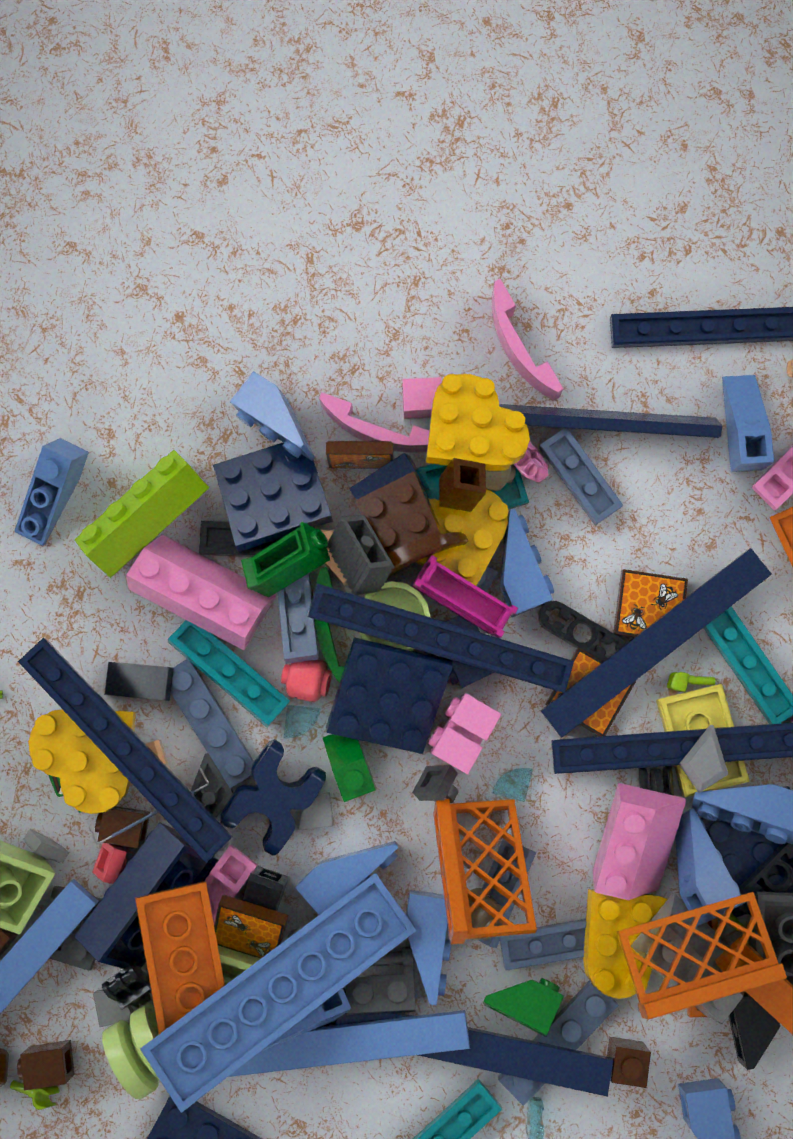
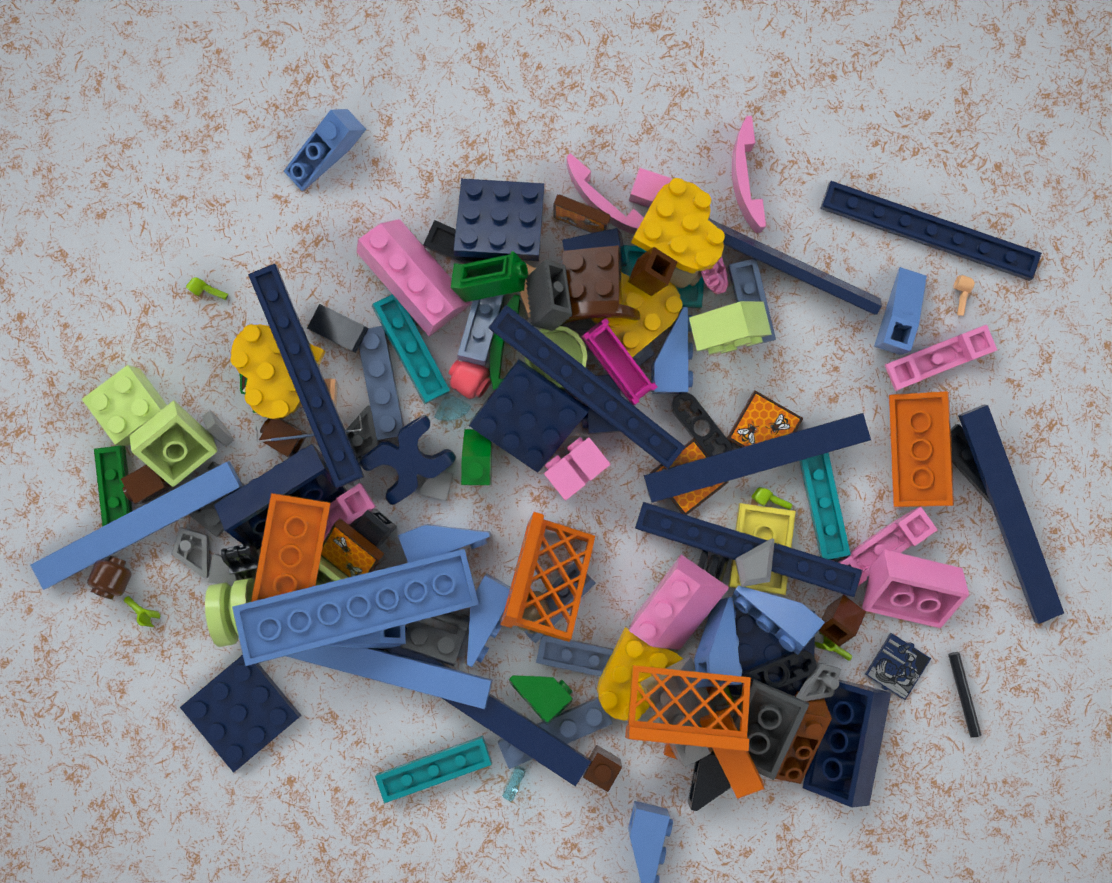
camera: 20 degrees right, 5 degrees up
(46, 1065) = (157, 594): reddish brown brick -> none
(68, 997) = (193, 550): none -> light grey piece
(110, 863) = (262, 460): coral plate -> none
(141, 513) = (388, 195): lime slope -> none
(267, 407) = (522, 148): medium blue slope -> none
(436, 784) = (539, 500): dark grey tile -> none
(514, 784) = (600, 524): clear light blue tile -> none
(570, 512) = (730, 327): none -> yellowish green brick

